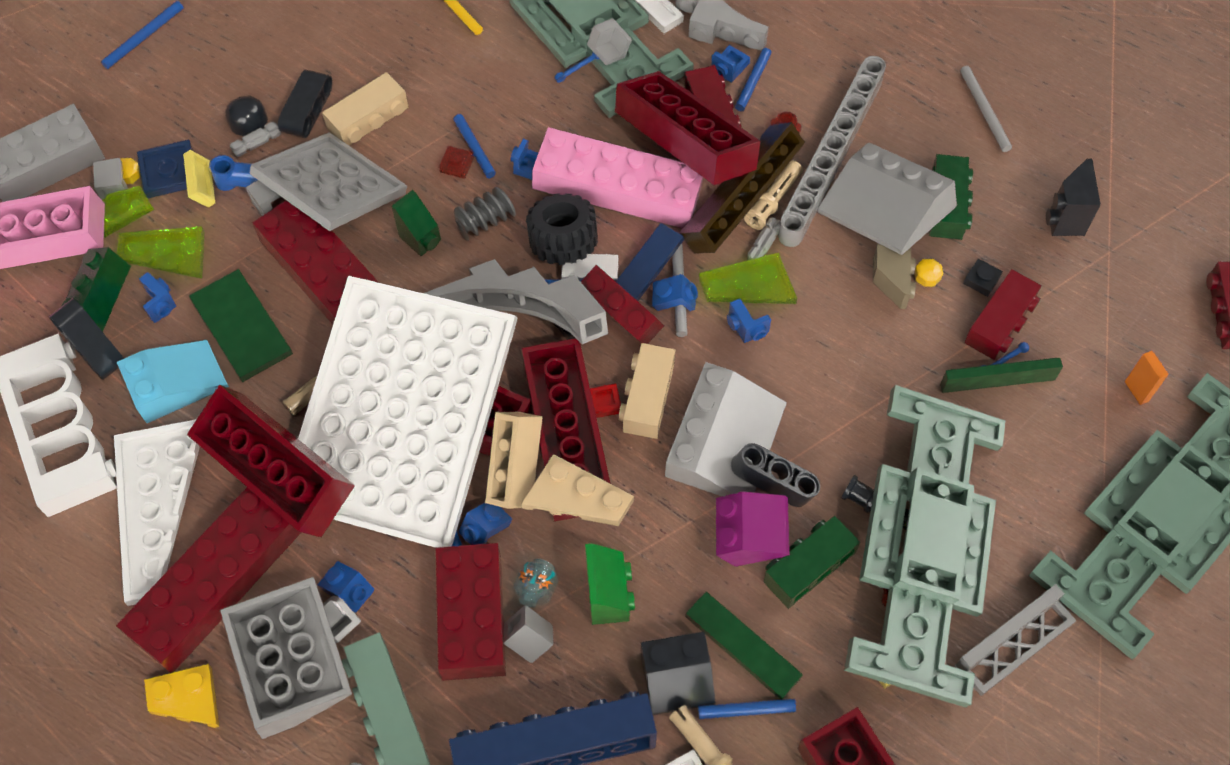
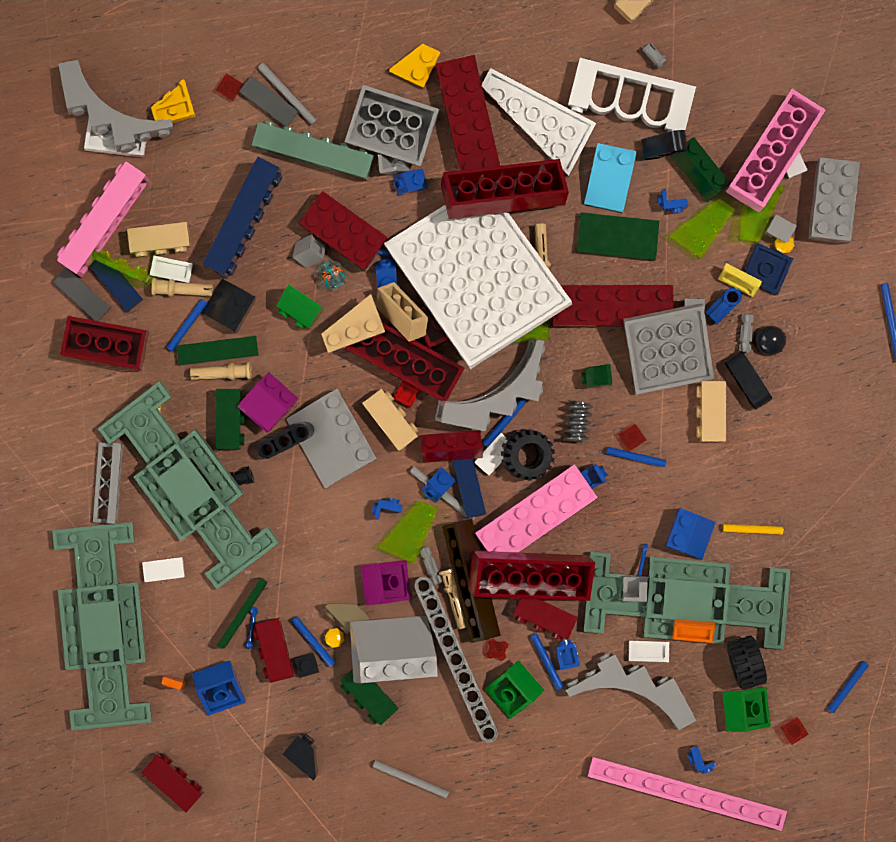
camera: 125 degrees right, 25 degrees up
(512, 53) = (690, 533): none -> blue slope
(755, 606) = (231, 371): none -> tan pin
(808, 80) = (514, 689): none -> green slope
(826, 265) = (385, 582): none -> magenta slope
(953, 290) = (313, 641): none -> blue bar
(1042, 497) = (163, 569): none -> white tile
(1098, 339) = (218, 687): none -> blue slope

